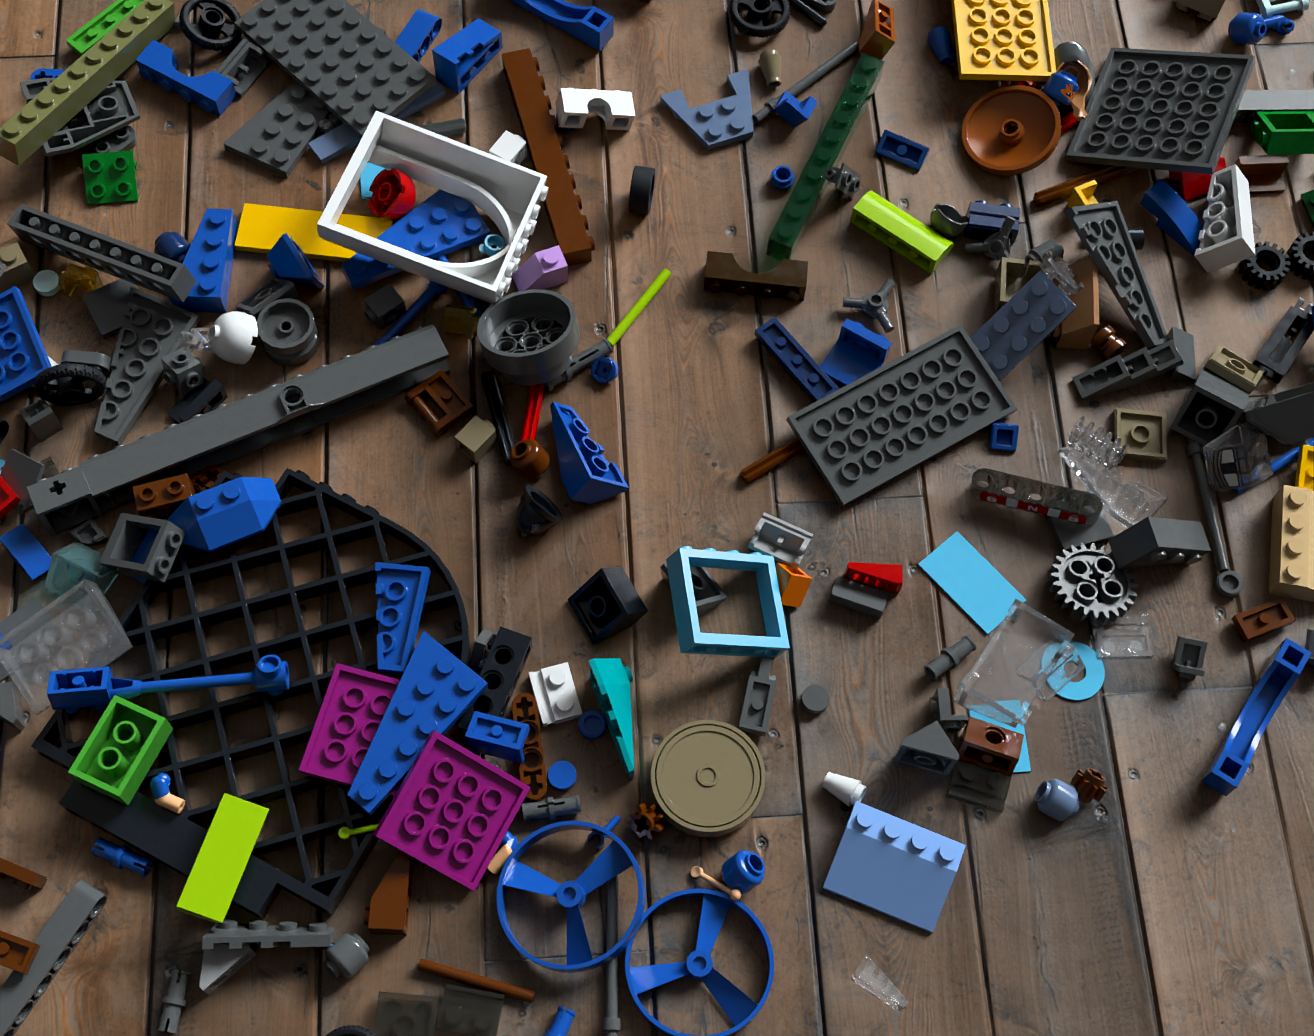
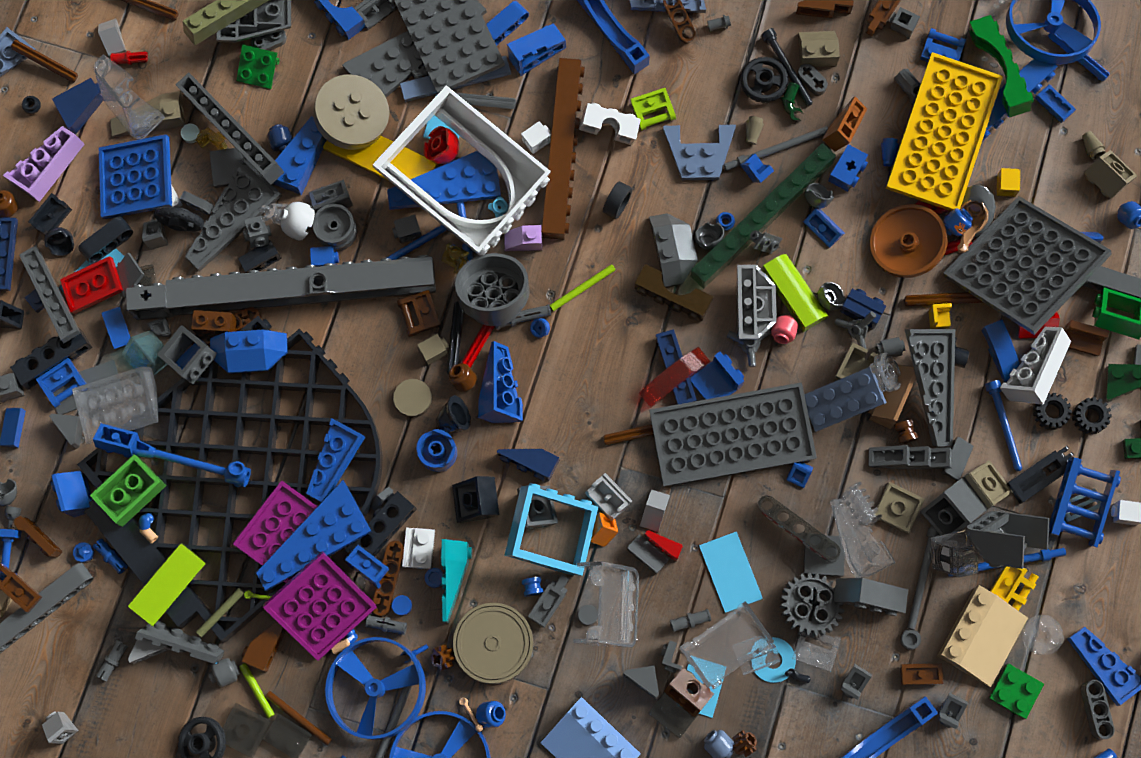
camera: 30 degrees right, 10 degrees up
(36, 787) = (72, 492): none -> blue slope
(79, 866) = (83, 552): none -> blue tile
(258, 188) = (351, 112): none -> brick
(284, 369) = (323, 255): none -> blue brick
(292, 264) = (356, 177): blue slope -> none
(312, 871) = (220, 612): none -> olive bar
(402, 965) = (256, 690): none -> lime bar
(471, 508) = (412, 397): none -> dark tan tile
(537, 573) = (433, 440): none -> blue brick
(636, 74) = (651, 103): none -> lime plate
(660, 531) = (534, 460): none -> dark blue slope
(728, 687) = (532, 586): none -> blue wheel
(732, 226) = (673, 248): none -> dark grey wedge
(771, 198) = (709, 235): none -> dark grey hair
(798, 373) = (674, 376): none -> clear red slope
(799, 25) = (788, 101): none -> dark green piece
(844, 540) = (654, 510): none -> light grey slope
(844, 788) = (581, 684): white cone -> none
(845, 670) = (617, 605): none -> clear windscreen
(859, 252) = (754, 302): none -> light grey wedge
(880, 116) = (818, 195): none -> dark grey hair
(902, 76) = (850, 158): none -> blue brick
(910, 274) = (784, 329): none -> coral head
(1093, 35) = (1008, 182): none -> yellow panel
(1118, 679) = (798, 677): none -> black piece
(1186, 263) = (994, 390): none -> blue piece

